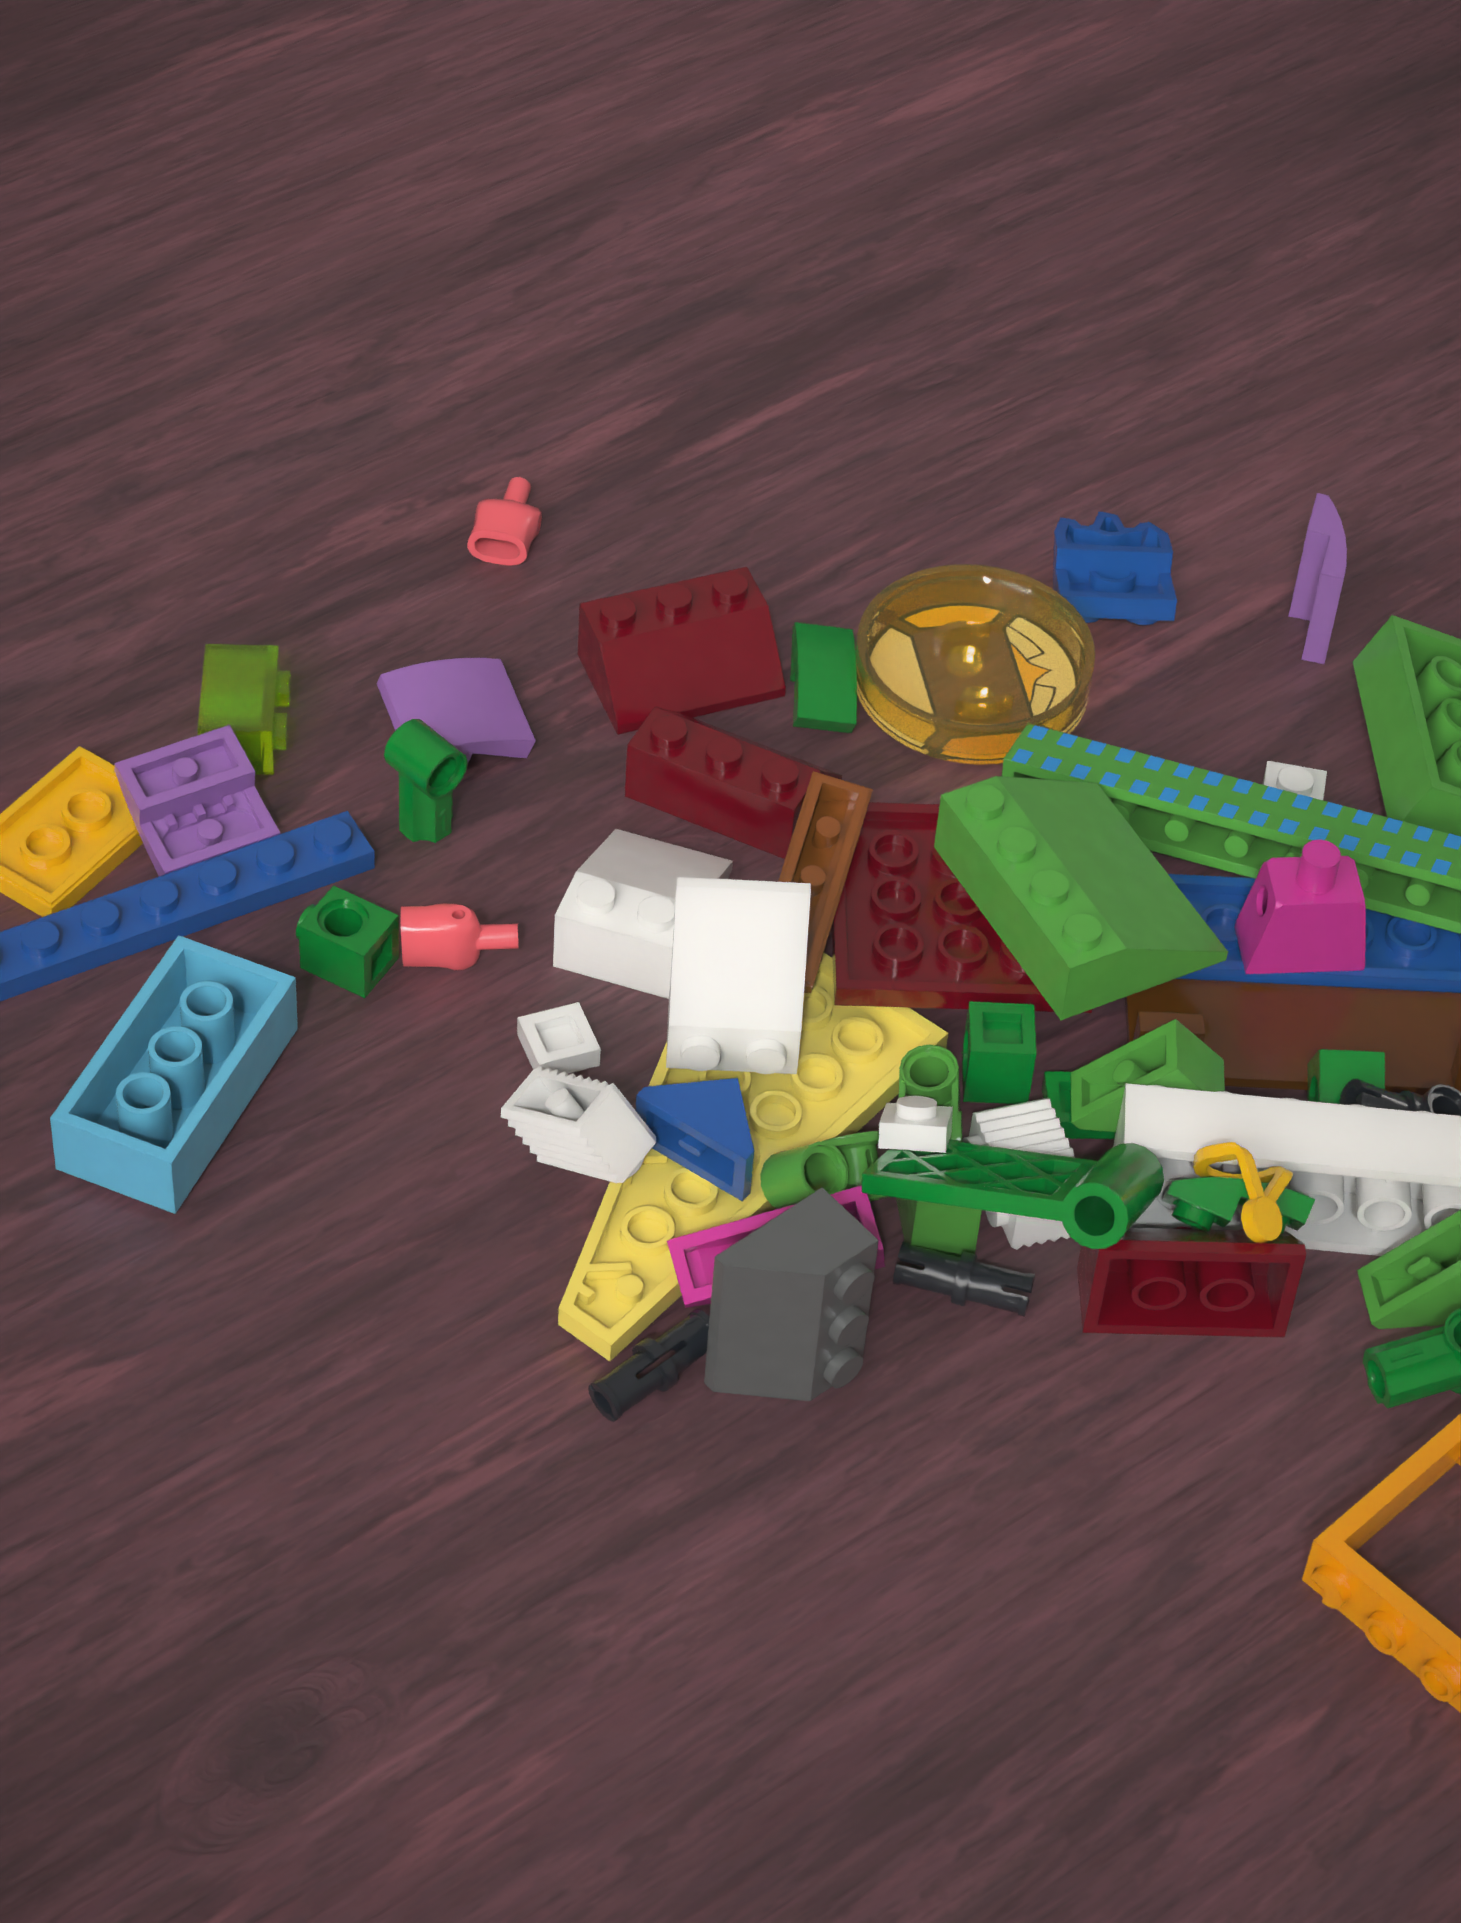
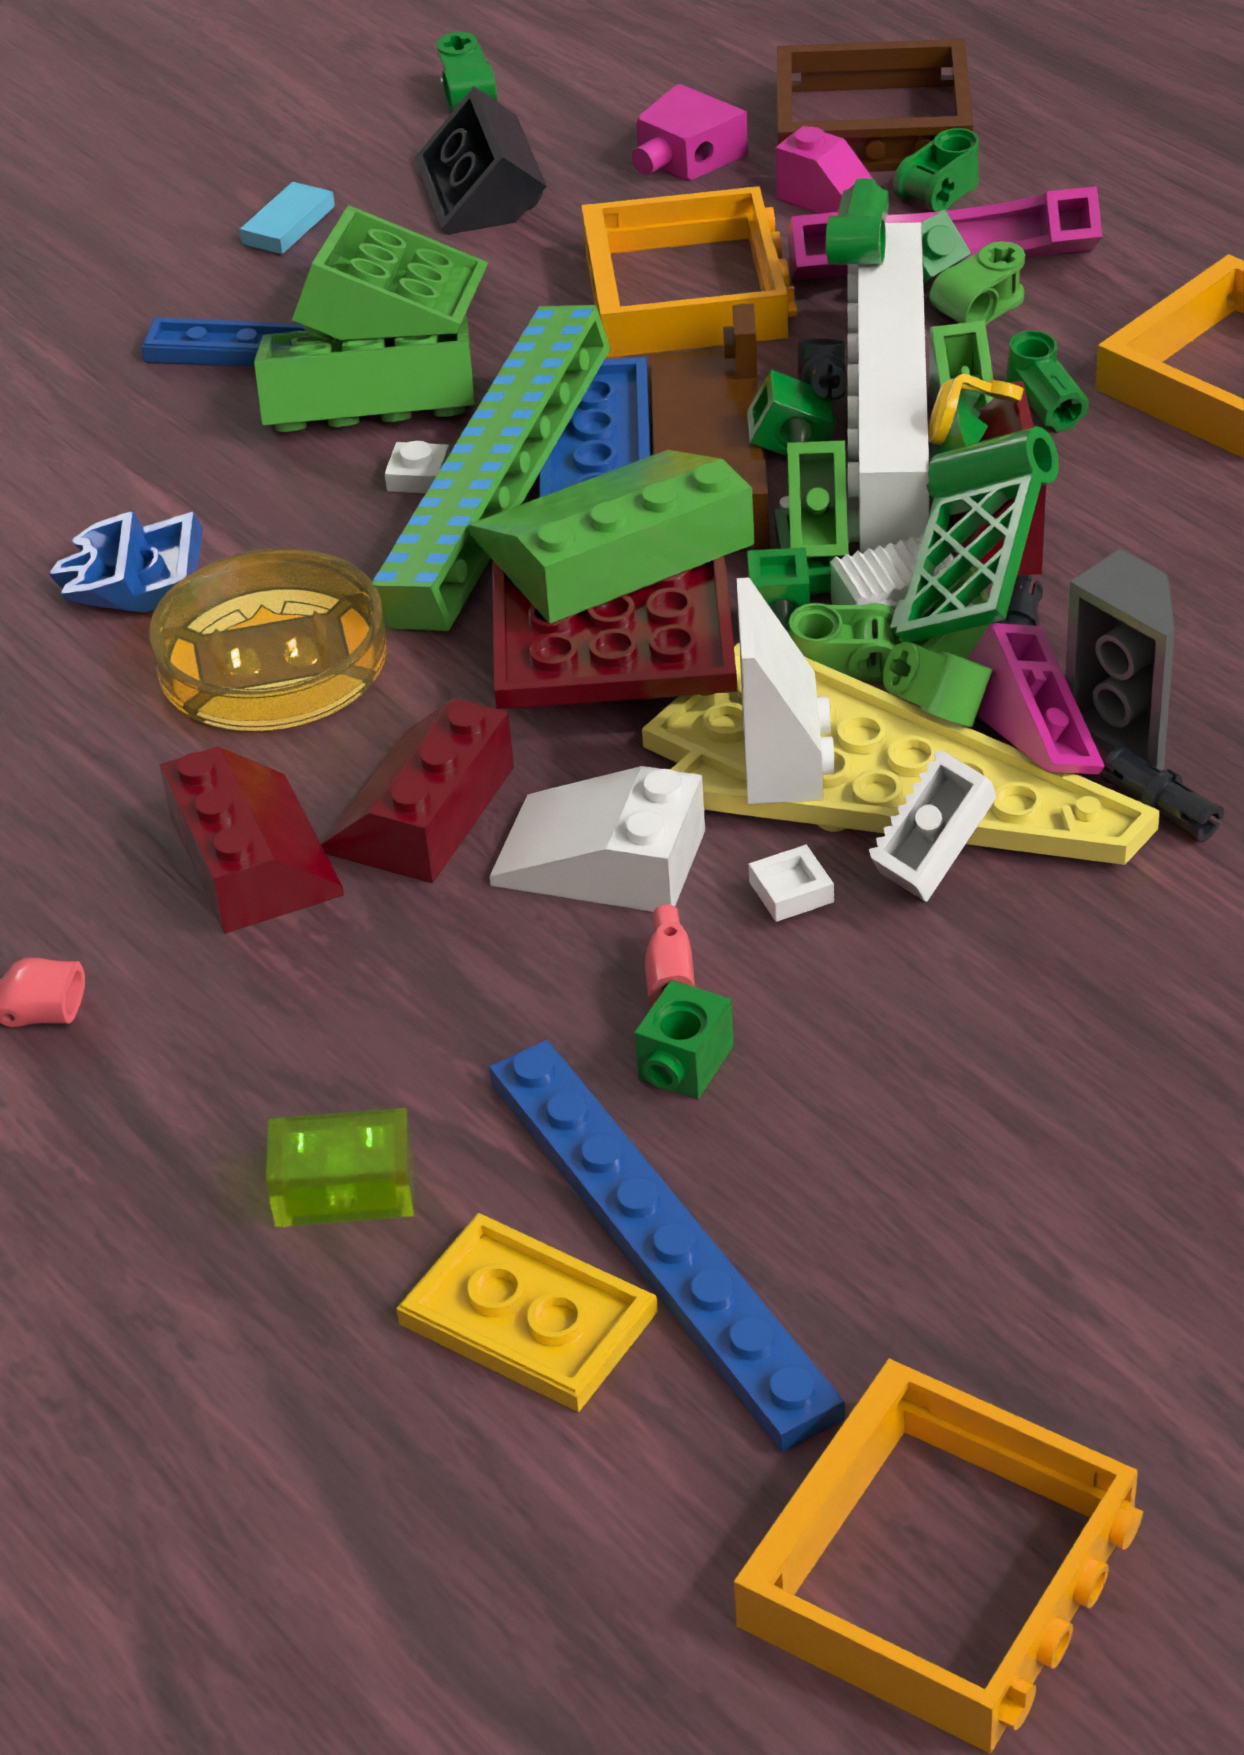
camera: 85 degrees left, 5 degrees down
(175, 1074) = (904, 1133): medium azure brick -> none
(194, 800) = (503, 1177): medium lavender slope -> none
(427, 776) = (471, 971): green piece -> none
(463, 702) = (334, 1000): medium lavender slope -> none
(702, 1130) = (919, 728): blue slope -> none
(823, 853) = (610, 699): dark orange slope -> none
(824, 677) = (300, 733): green slope -> none
(915, 1125) = (902, 612): white plate -> none
(1304, 914) = (618, 393): dark pink torso -> none
(1320, 577) = (175, 423): medium lavender slope -> none

